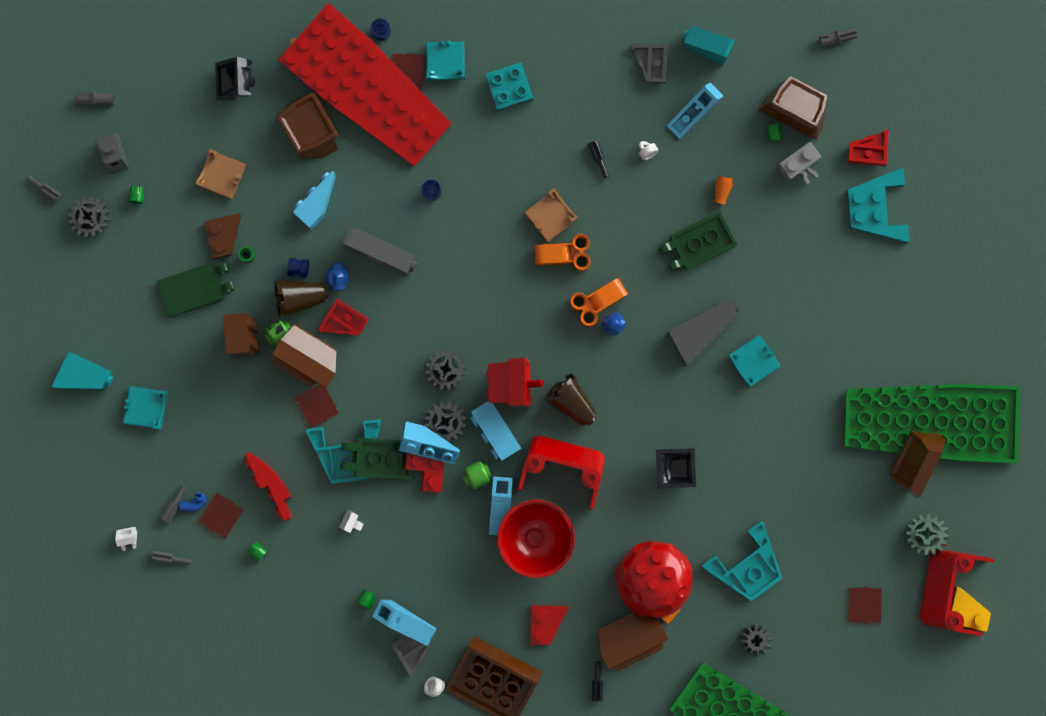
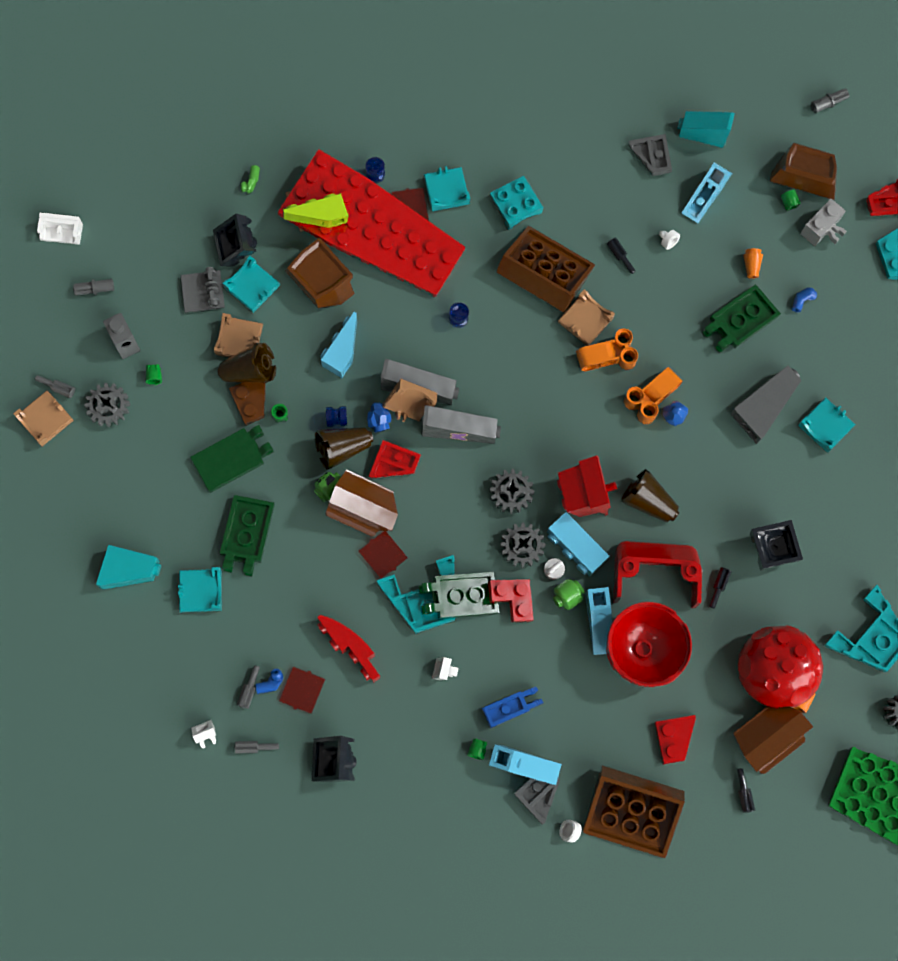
camera: 15 degrees left, 10 degrees down
(29, 218) = (44, 418): none -> medium nougat piece
(72, 34) = (59, 228): none -> white hinge
(196, 121) = (202, 291): none -> dark grey hinge
(196, 362) = (246, 533): none -> dark green tile
(226, 205) = (249, 365): none -> dark brown cone
(235, 585) = (332, 759): none -> black brick
(240, 335) = (291, 492): reddish brown brick -> none
(242, 124) = (251, 285): none -> teal piece
(257, 551) = (349, 721): green hose -> none
(262, 18) = (252, 181): none -> bright green arm
(322, 70) = (323, 212): none -> lime slope
(367, 267) = (409, 400): none -> medium nougat piece
(403, 567) = (510, 707): none -> blue hinge
(410, 299) = (459, 426): none -> slope
(425, 443) = (507, 569): medium azure slope -> none
(470, 448) = (554, 569): none -> white tile
(523, 158) = (545, 268): none -> reddish brown slope
(618, 493) = (720, 585): none -> black axle
(761, 231) = (806, 294): none -> blue arm

